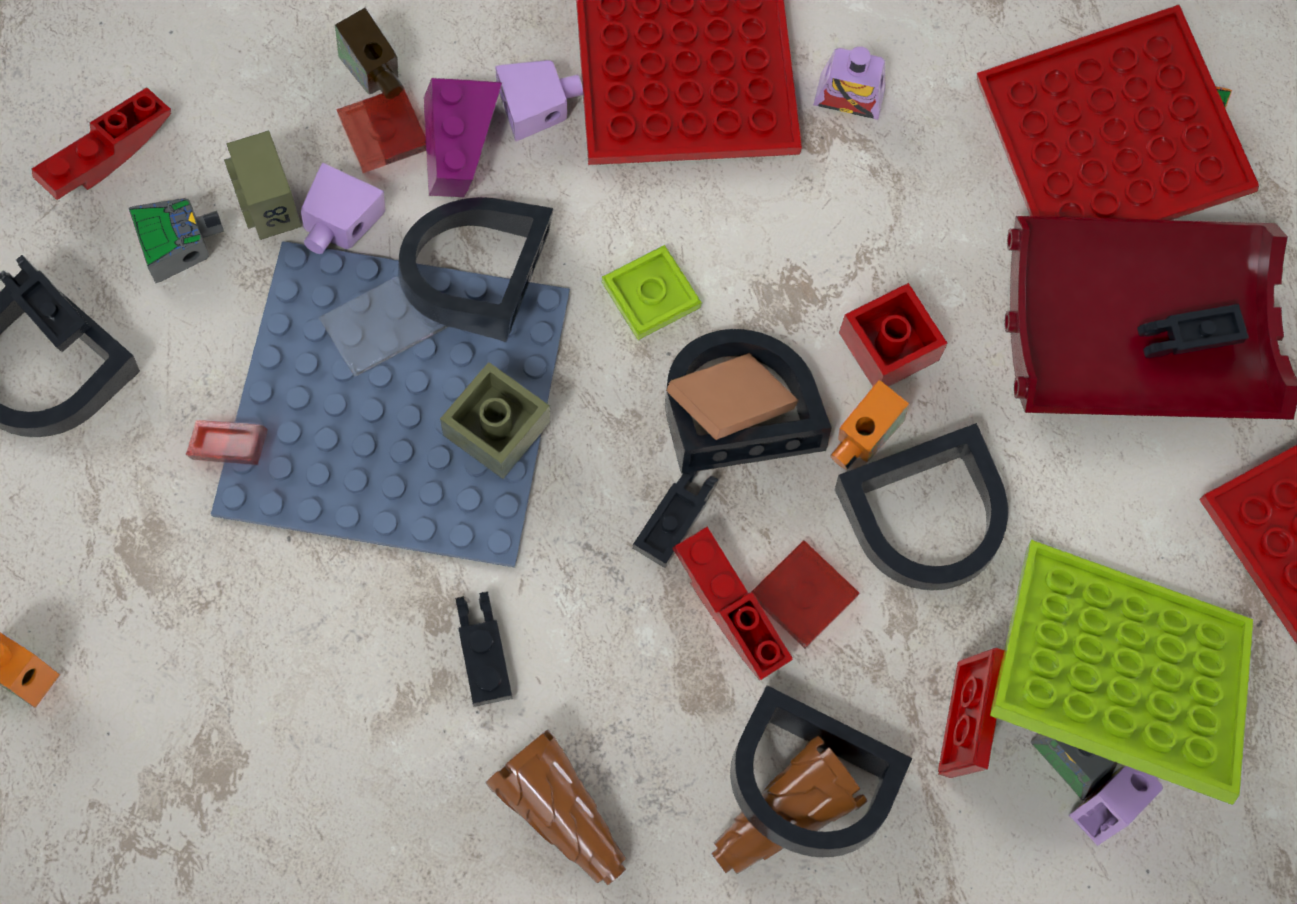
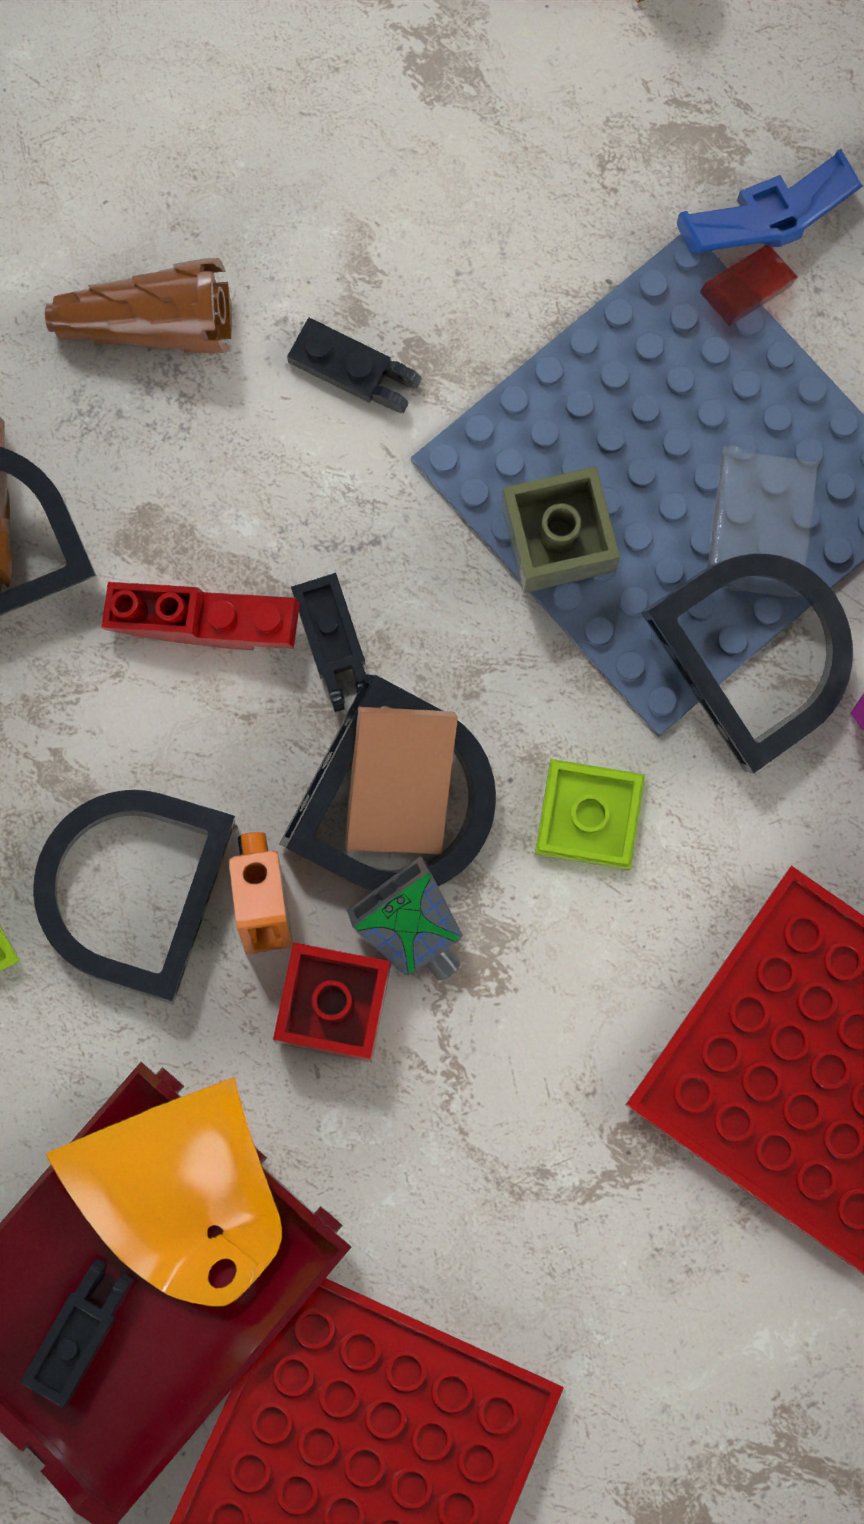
camera: 135 degrees right, 10 degrees up
(160, 463) = (771, 211): none -> blue plate
(804, 594) = (156, 700): clear red tile -> none
(809, 332) = (409, 922): none -> torso
(852, 83) = (655, 1227): lavender torso -> none
(1084, 350) = (165, 1180): none -> light orange piece

